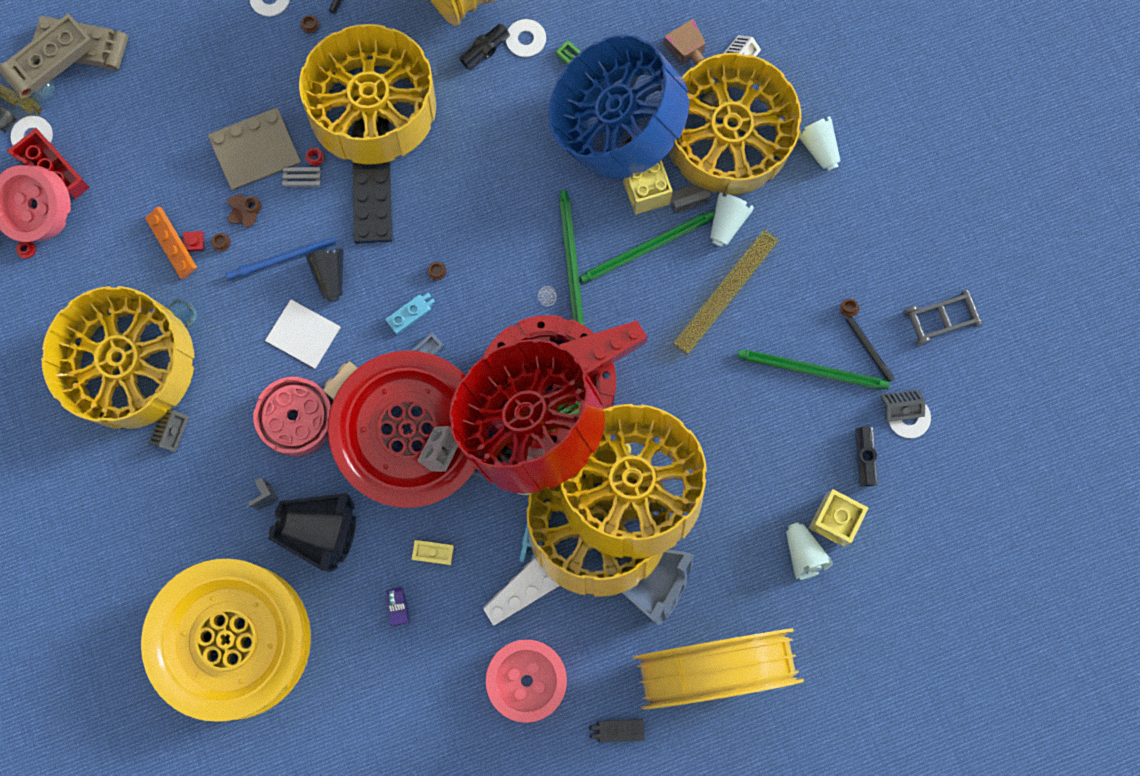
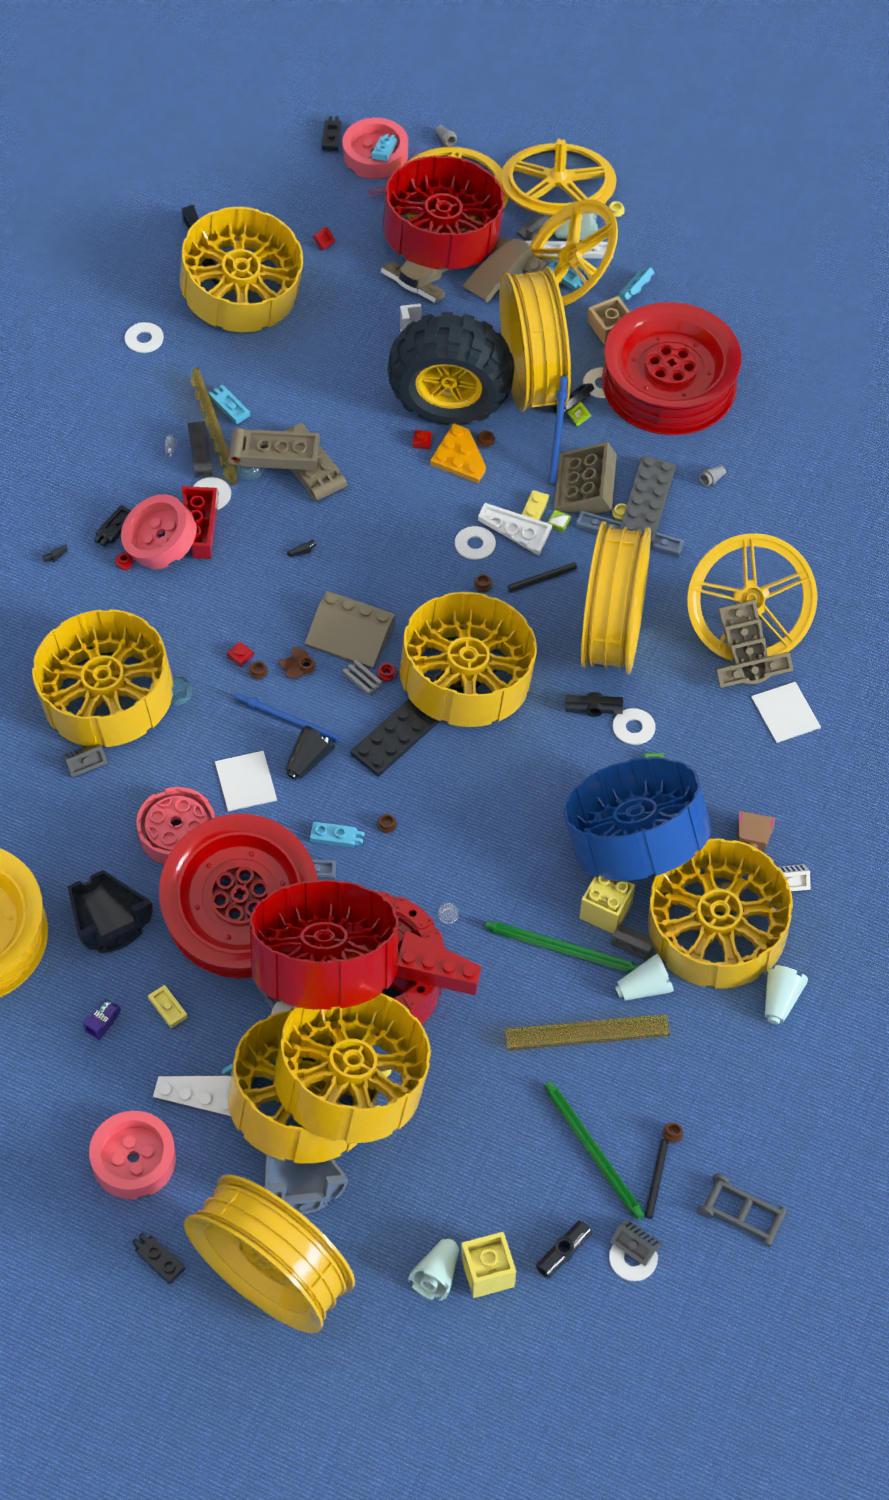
camera: 45 degrees right, 20 degrees down
(149, 117) = (304, 548): none -> black bar
(171, 243) = (223, 640): orange plate -> none
(268, 495) = (98, 857): dark grey panel -> none
(438, 450) = (236, 926): light grey brick -> none
(570, 254) = (500, 897): green piece -> none

